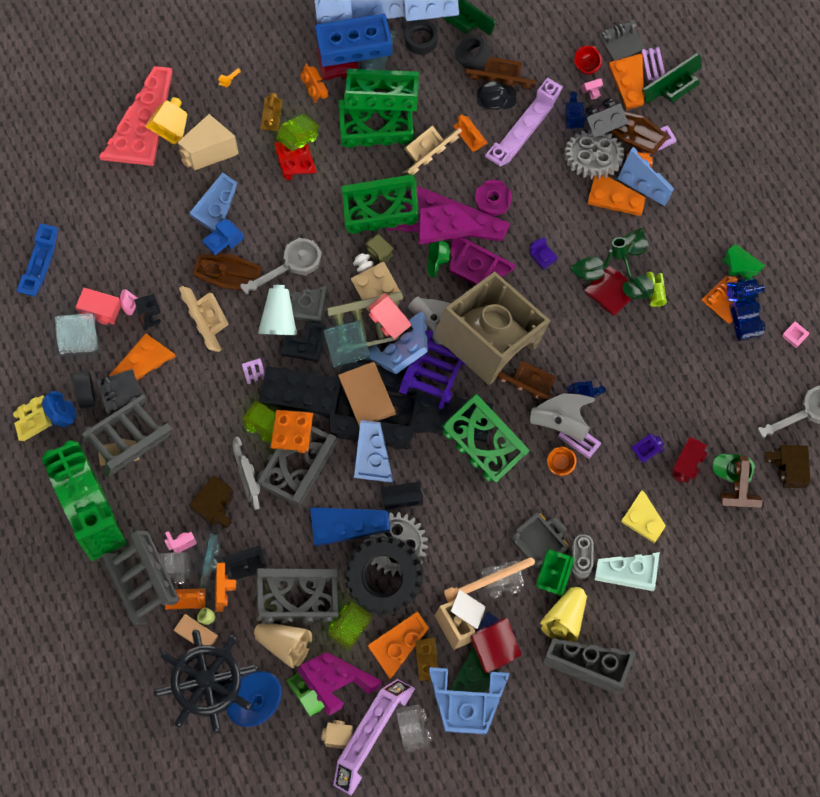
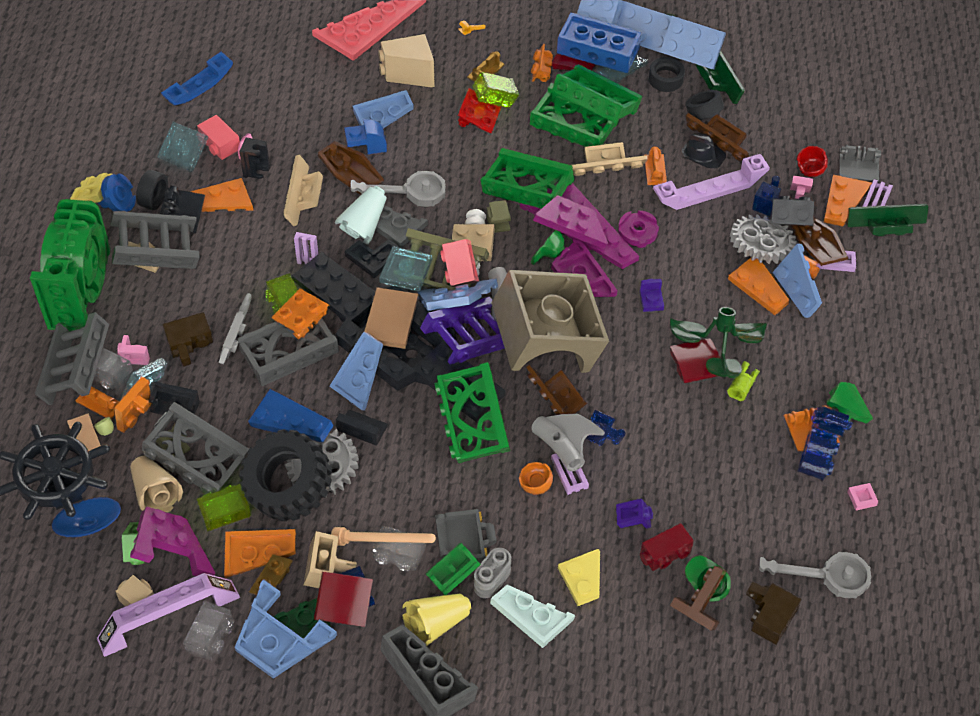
camera: 30 degrees right, 15 degrees down
(168, 121) = (390, 26): yellow torso -> none
(468, 609) = (342, 552): white sticker -> none

